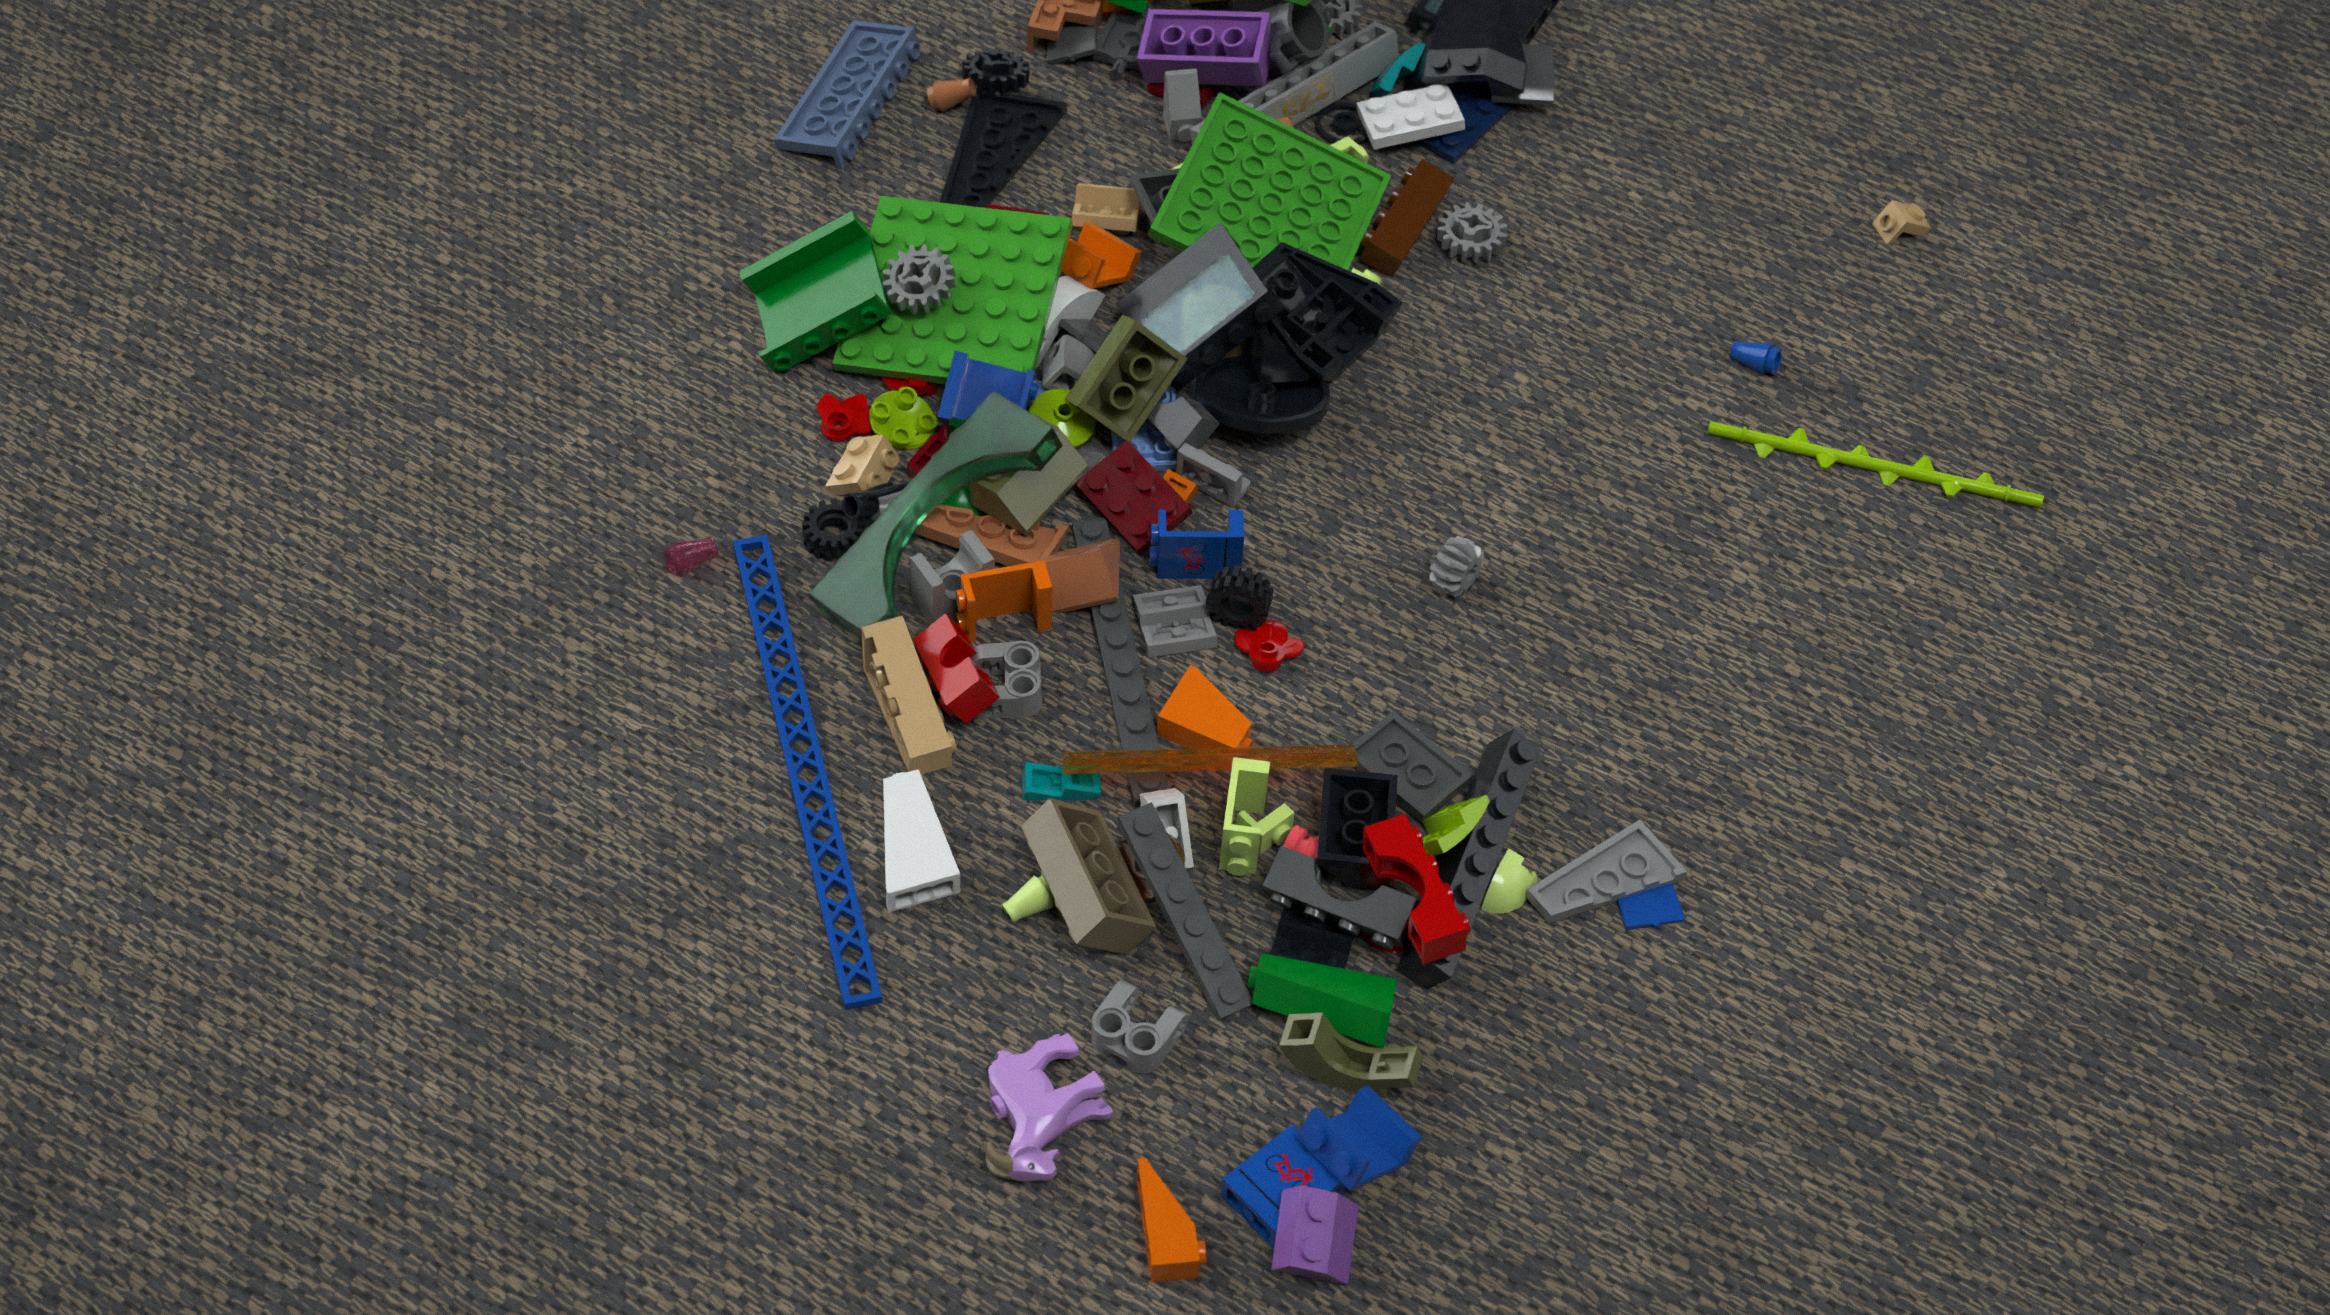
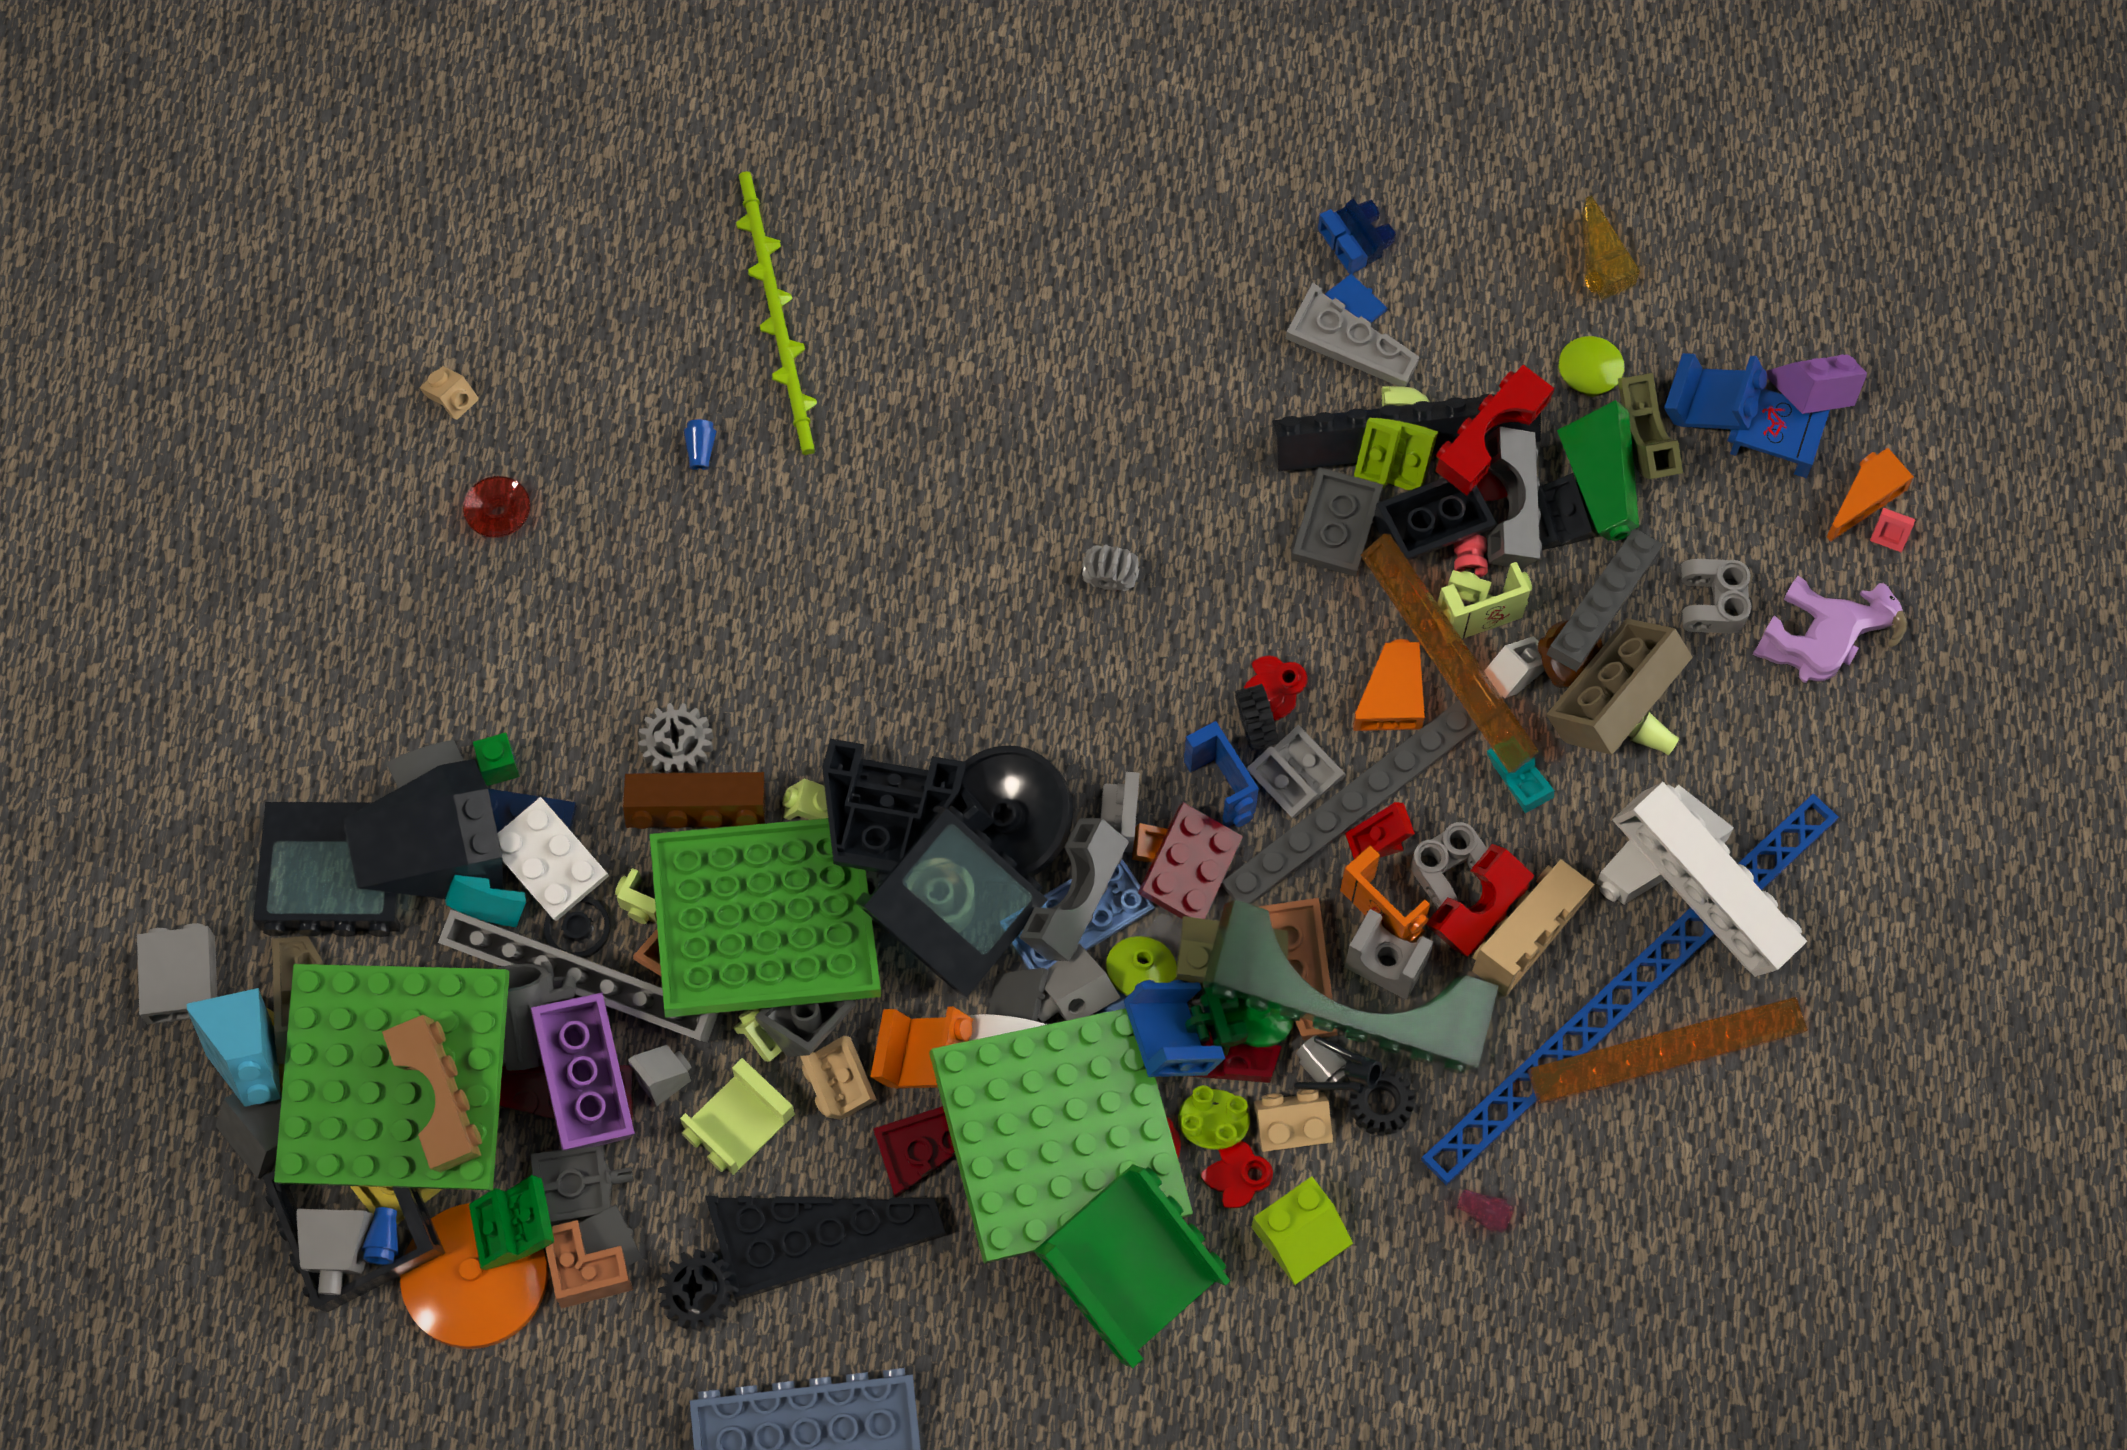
camera: 115 degrees left, 15 degrees up
(724, 751) = (1667, 1050): none -> clear orange tile
(767, 427) = (1302, 1230): none -> lime slope
(844, 821) = (1710, 879): none -> white brick
(919, 279) = (1070, 1148): light grey gear -> none
(948, 94) = (756, 1317): nougat cone -> none
(1069, 646) = (1382, 831): none -> red slope
(1084, 576) = (1303, 859): nougat slope -> none
(1109, 1227) = (1892, 530): none -> coral tile
(1115, 144) = (738, 1119): none -> yellowish green panel
(1126, 378) = (1094, 909): olive slope -> none
(1461, 1068) = (1591, 365): none -> lime dish
(1521, 121) = (496, 759): none -> green brick
(1583, 1141) = (1606, 259): none -> clear yellow slope
(1726, 933) = (1353, 235): none -> hips
(1764, 206) = (494, 493): none -> clear red dish

